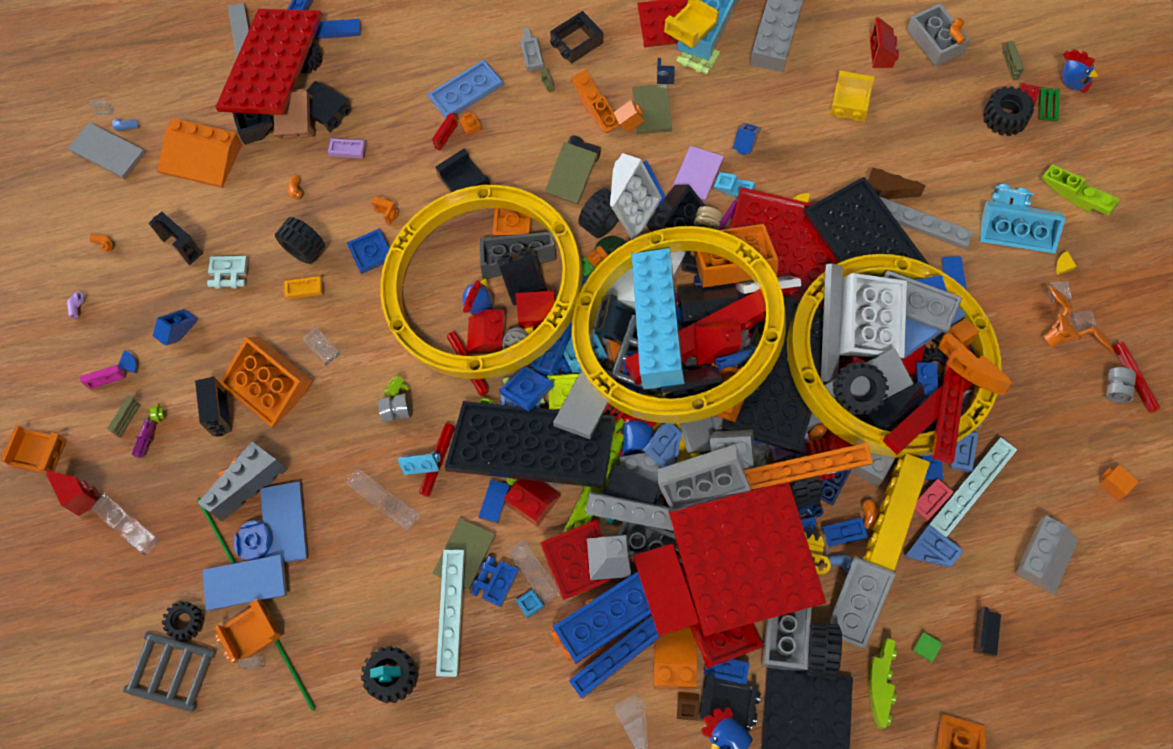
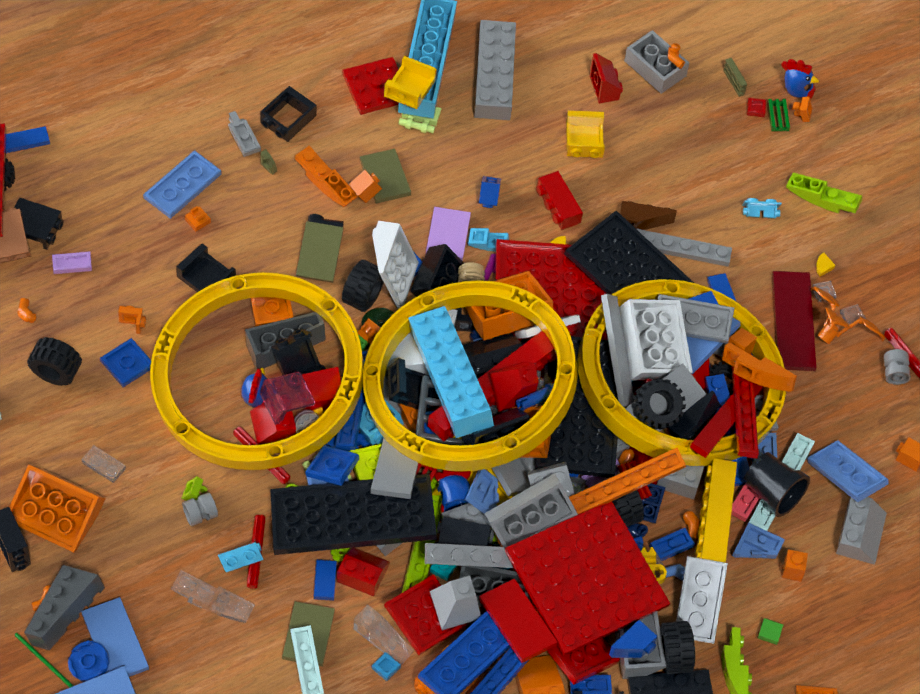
camera: 25 degrees left, 10 degrees down
(303, 287) = (67, 410): light orange plate -> none
(444, 131) = (174, 230): red tile -> none
(497, 311) = (285, 395): none -> clear pink bracket
(499, 584) = (352, 653): blue plate -> none
(665, 74) = (390, 138): dark blue panel -> none
(780, 639) = (634, 642): none -> blue slope
(811, 157) = (559, 200): none -> red brick
(967, 492) = (777, 484): none -> black piece
(968, 581) = (794, 565): none -> orange brick
(987, 632) = (821, 607): black panel -> none
(1009, 99) = (743, 116): black tyre -> none
(1021, 226) = (776, 236): medium azure slope -> none
(1022, 316) = (794, 320): none -> dark red tile
(1046, 490) = (847, 471): none -> medium blue tile
(1076, 102) = (803, 109): none -> orange tile

